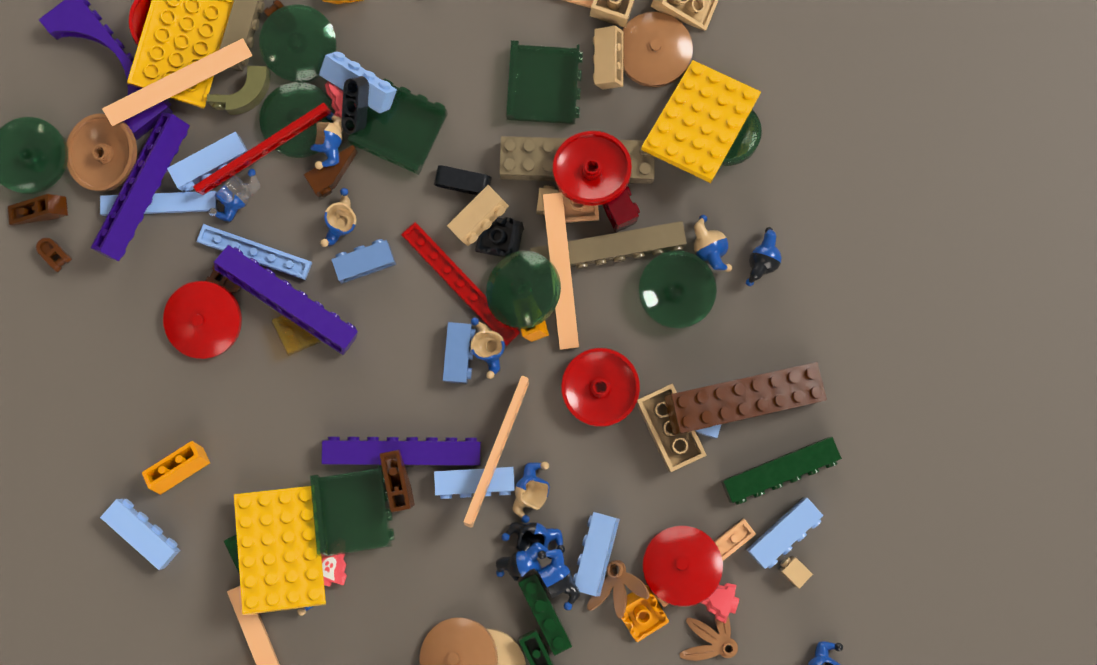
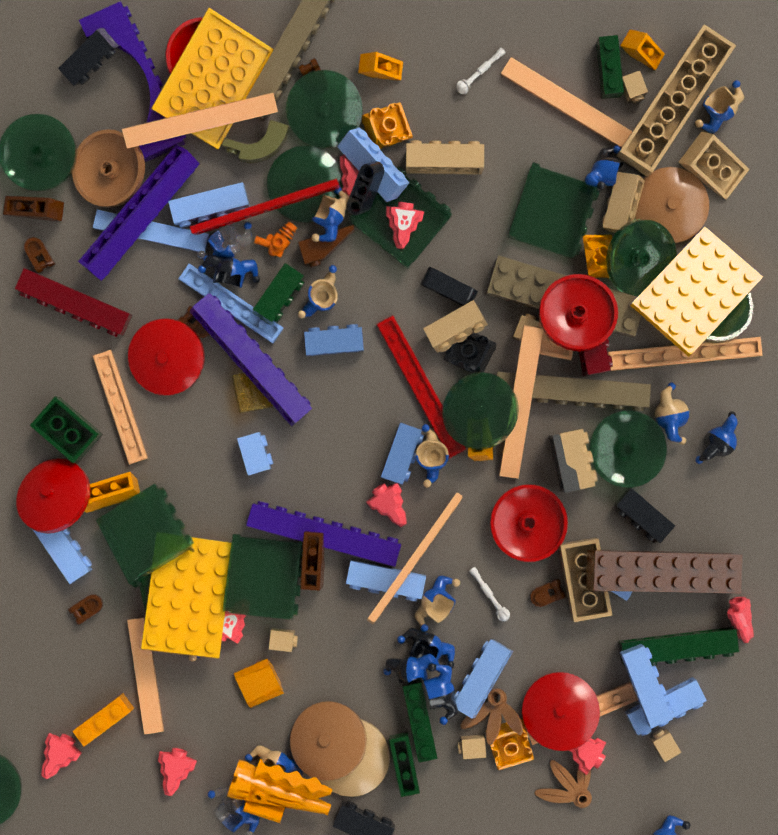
camera: 20 degrees right, 5 degrees up
(56, 51) = (89, 57): none -> black brick
(97, 290) = (74, 302): none -> dark red brick
(119, 416) = (66, 429): none -> dark green brick
(121, 485) = (53, 496): none -> red dish
(169, 381) = (120, 407): none -> light nougat tile
(187, 586) = (92, 604): none -> reddish brown plate
(221, 498) = (144, 533): none -> clear green panel
(244, 219) = (230, 269): none -> black piece
(286, 180) = (279, 242): none -> orange piece
(298, 230) = (279, 294): none -> dark green brick
(313, 391) = (255, 453): none -> light blue brick
(362, 43) = (387, 125): none -> light orange slope
(374, 619) = (259, 683): none -> light orange slope
(387, 569) = (282, 640): none -> tan brick
(401, 128) = (403, 221): none -> coral rock
(424, 58) = (444, 158): none -> tan brick
(457, 404) = (389, 503): none -> coral rock
(582, 29) = (605, 169): none -> blue piece
(599, 484) = (502, 613): none -> white piece
(601, 112) = (596, 253): none -> light orange slope
(604, 625) = (472, 747): none -> tan brick
(626, 314) = (572, 460): none -> piece
(631, 457) = (541, 597): none -> reddish brown plate
(636, 100) = (639, 255): none -> clear green dish
(700, 188) = (673, 355): none -> light nougat tile
(711, 350) = (644, 516): none -> black brick
(759, 516) = (646, 686): none -> light blue brick
(834, 425) = (741, 617): none -> coral rock

